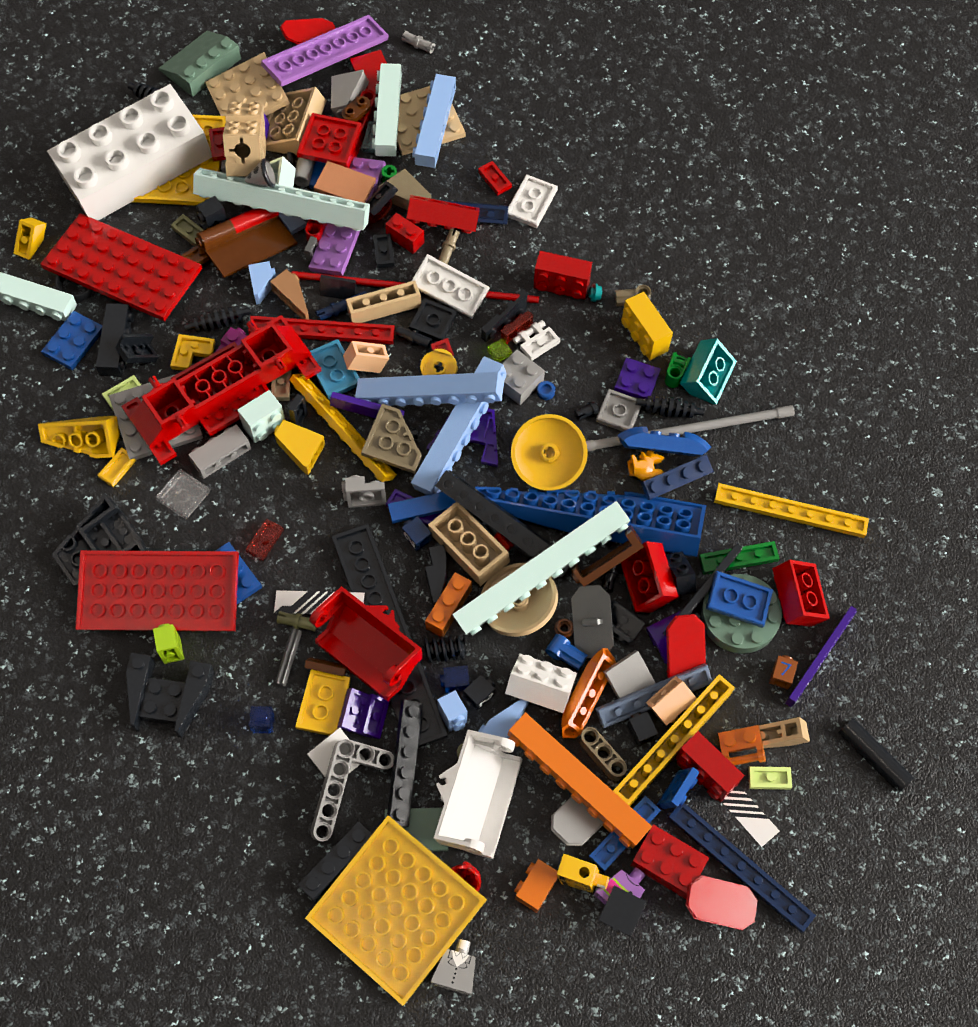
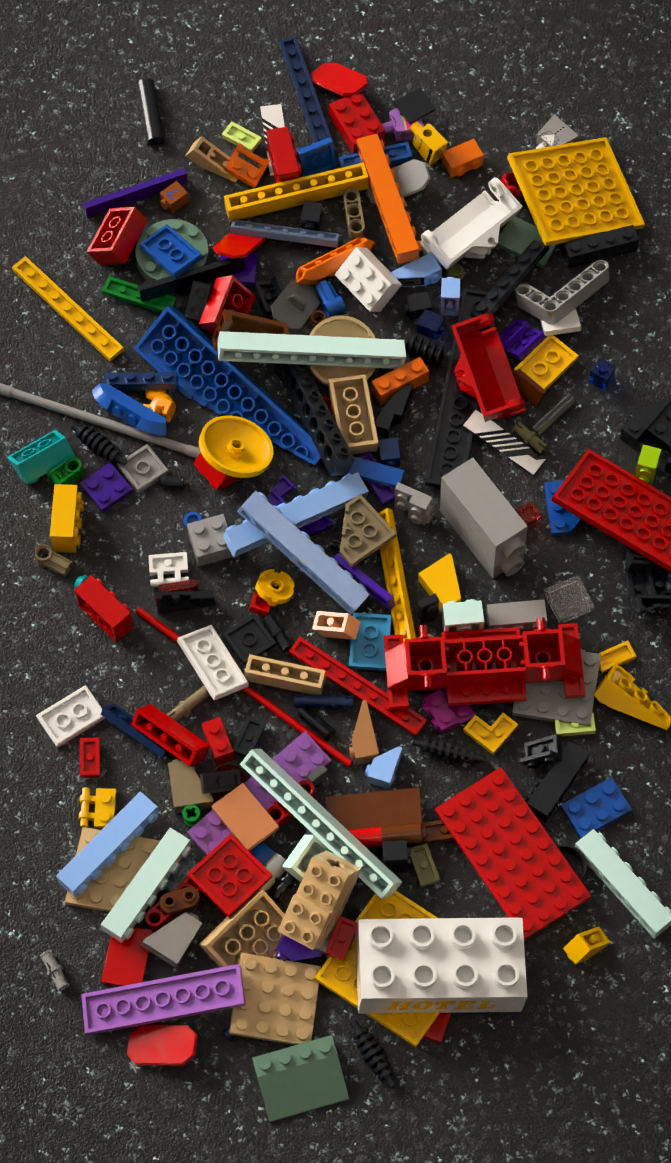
camera: 145 degrees left, 0 degrees up
(262, 175) = (328, 839): light grey hat -> none
(287, 495) = (483, 519): none -> light grey brick
(458, 153) = (104, 807): none -> yellow plate
(499, 350) = (208, 580): clear neon green tile -> none
(629, 675) = (295, 253): light grey tile -> none
(671, 700) = (277, 218): light nougat brick -> none

